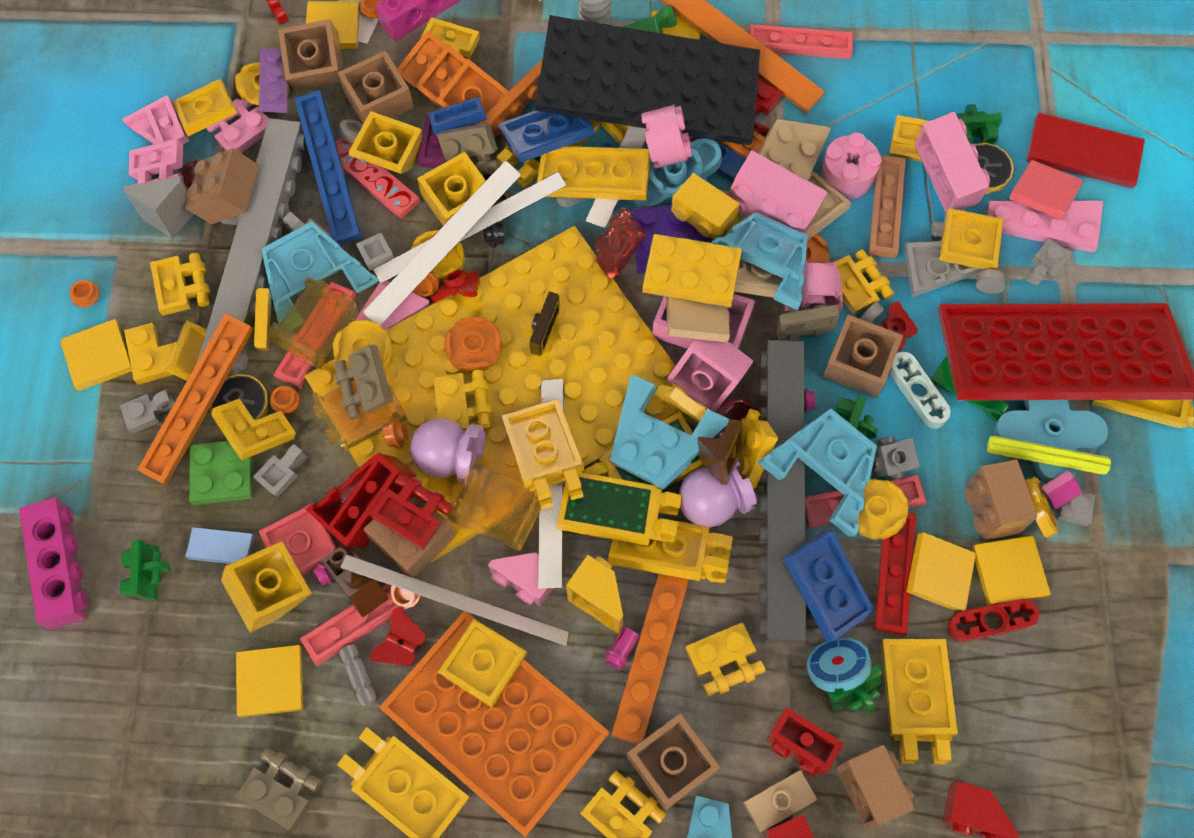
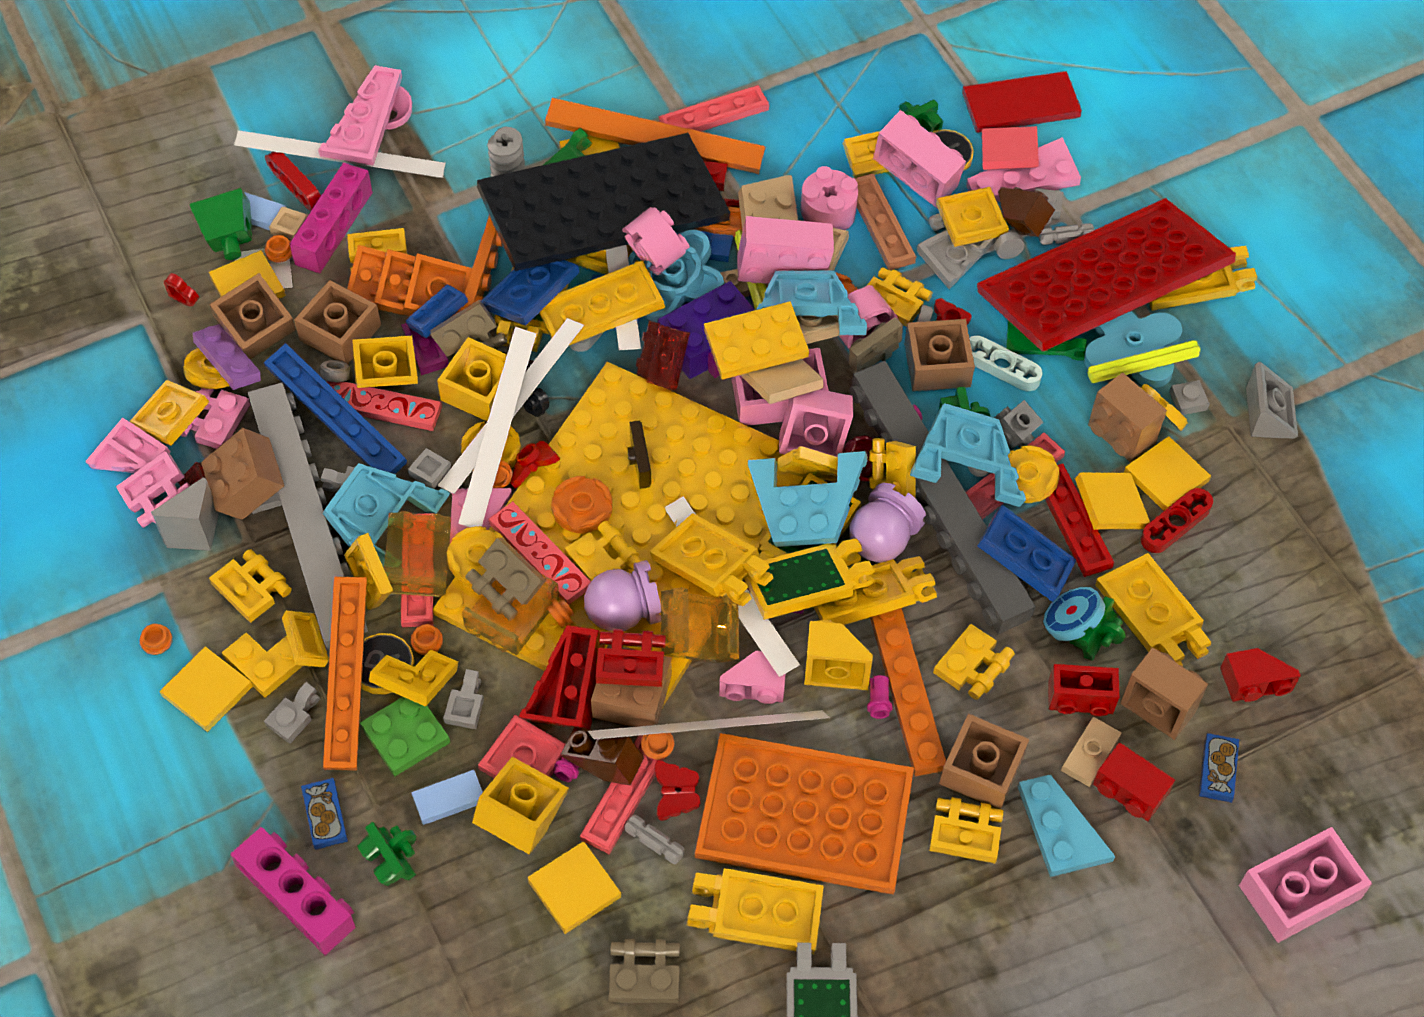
camera: 30 degrees left, 10 degrees down
(119, 508) = (324, 813): none -> tile
(412, 370) = (539, 551): none -> coral tile
(482, 662) = (766, 766): yellow tile -> none
(704, 207) = (727, 286): yellow brick -> none
(722, 453) = (872, 483): reddish brown slope -> none
(1023, 256) = (1025, 210): none -> reddish brown slope
(1050, 293) = (1064, 234): none -> light grey axle
(1062, 489) = (1171, 385): dark pink tile -> none
(1151, 554) = (1270, 405): none -> light grey slope

